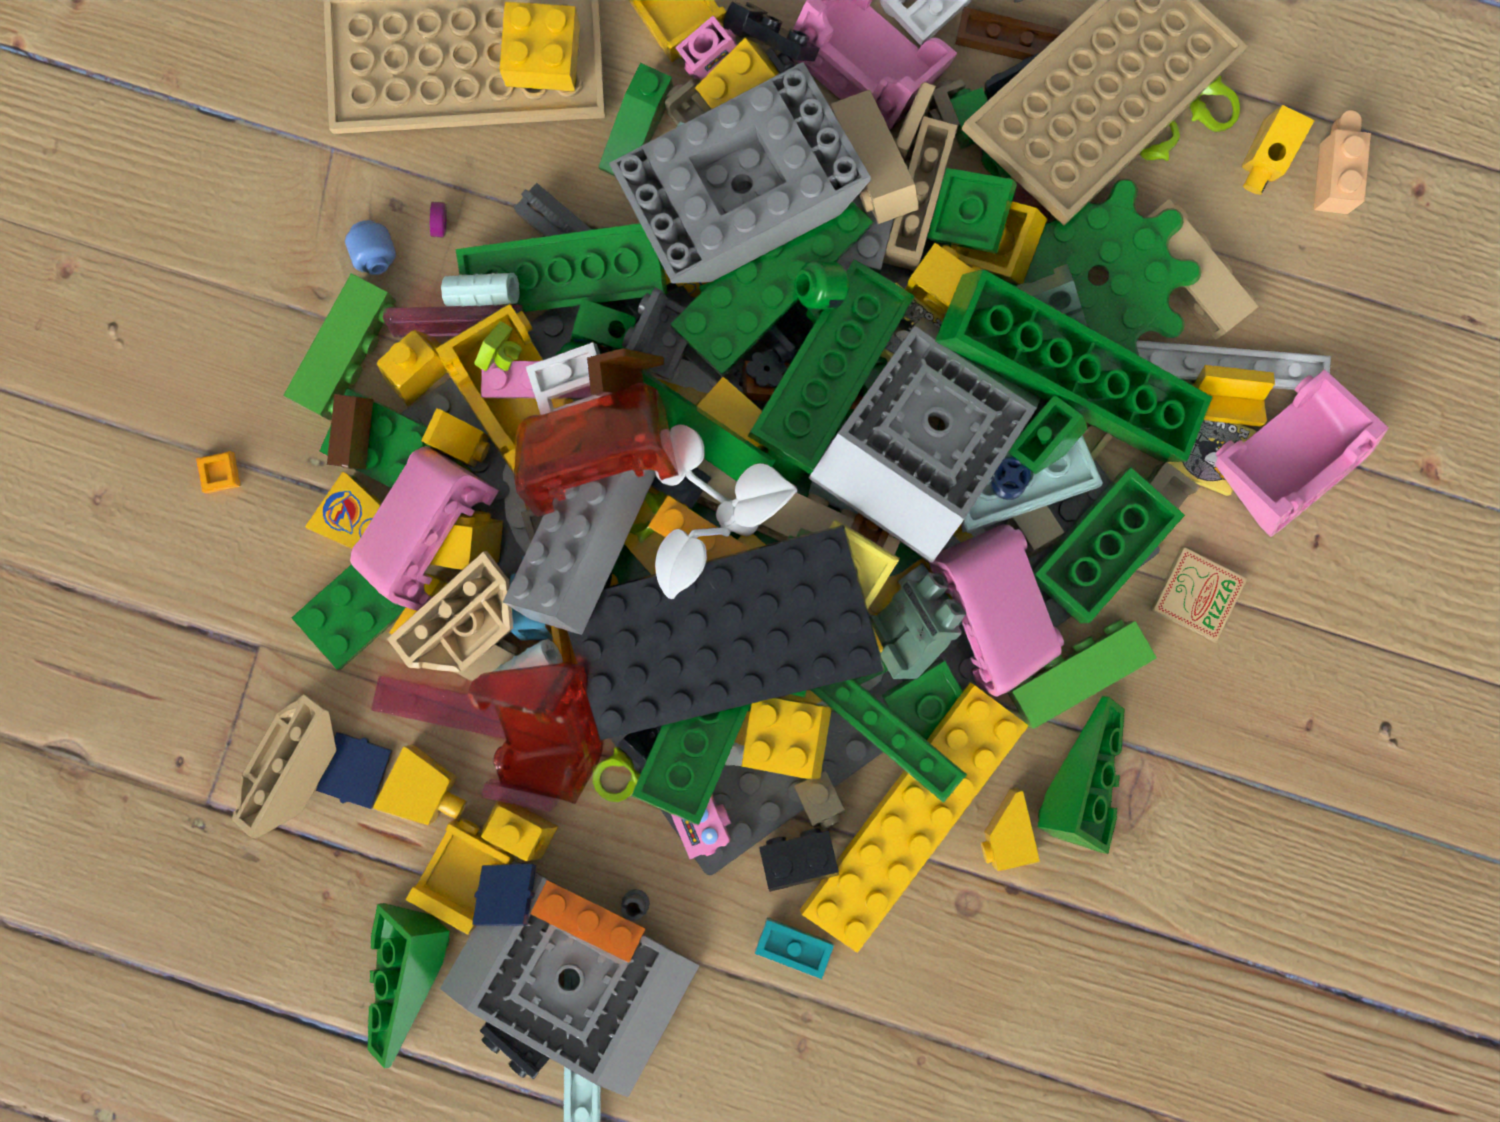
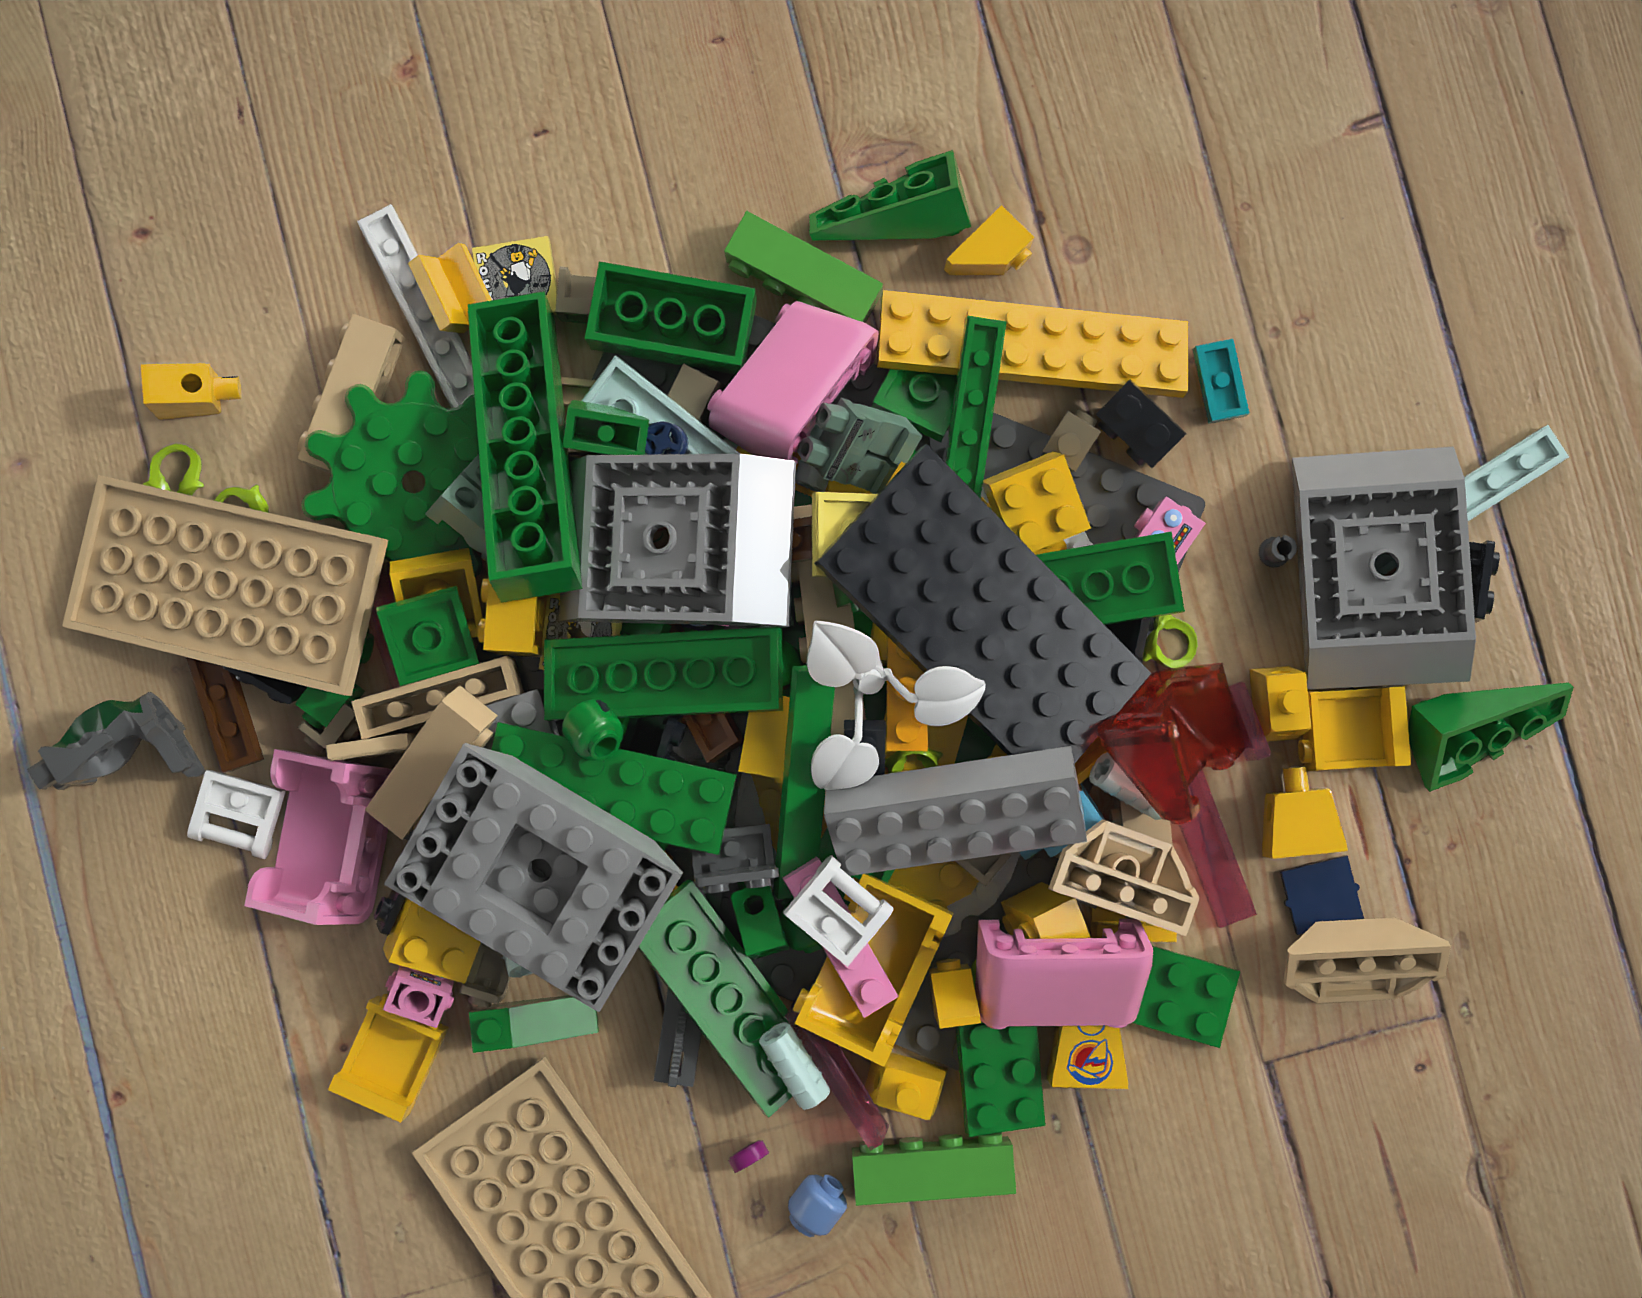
camera: 125 degrees left, 0 degrees up
(218, 472) = (1126, 1212): light orange tile -> none
(350, 431) = (1011, 1104): reddish brown panel -> none
(497, 347) = (844, 1009): lime tile -> none
(504, 895) = (1347, 674): dark blue piece -> none
(539, 46) = (516, 1163): yellow brick -> none
(588, 921) = (1322, 580): orange plate -> none
(591, 443) = (887, 849): clear red windscreen -> none
(619, 370) = (801, 868): reddish brown panel -> none
(755, 23) = (363, 947): black plate -> none
(766, 369) = (695, 739): black plant -> none
(1199, 594) = (659, 210): tan tile -> none
(1300, 452) = (468, 195): bright pink windscreen -> none
(1343, 166) = (163, 316): light nougat brick -> none

